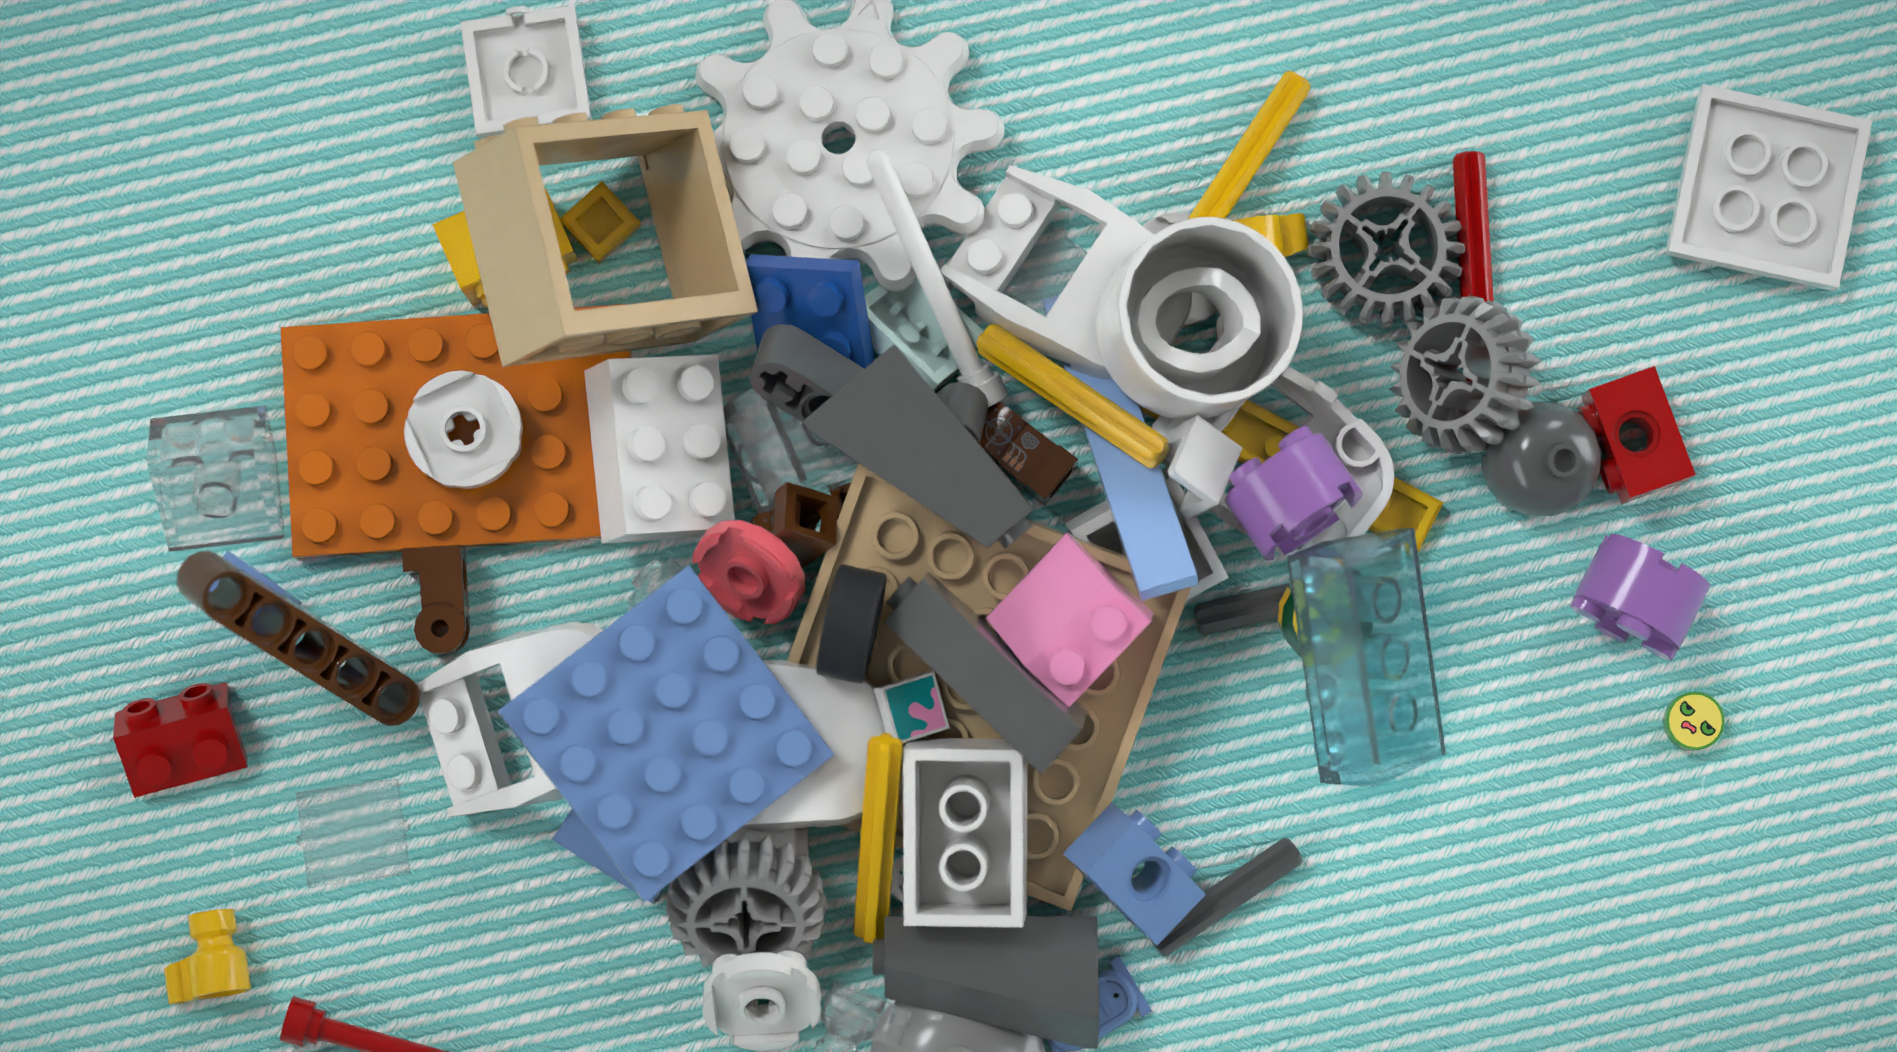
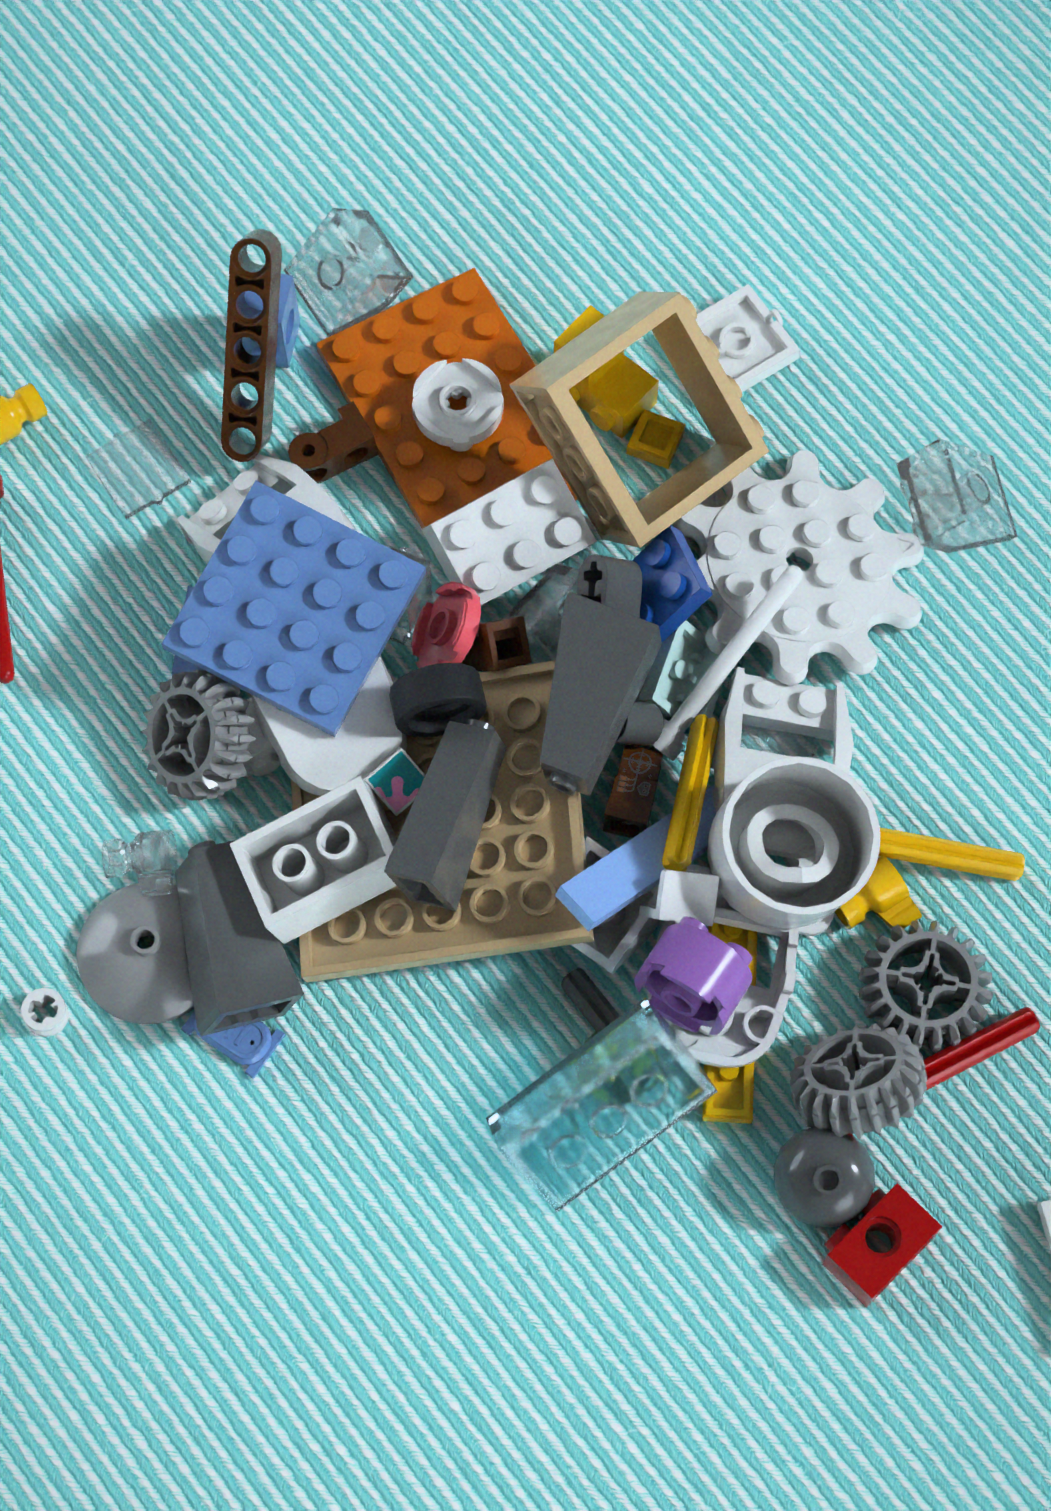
camera: 65 degrees right, 15 degrees down
(178, 739) = (152, 327): red bracket -> none
(740, 980) = (154, 785): white plate -> none
(877, 836) = (315, 784): yellow axle -> none
(1069, 619) = (515, 858): bright pink slope -> none
(1112, 851) = (330, 1027): medium blue brick -> none
(1233, 892) = (365, 1091): dark grey axle -> none
(1640, 595) = (752, 1298): medium lavender brick -> none
(1693, 721) = (676, 1398): light yellow tile -> none

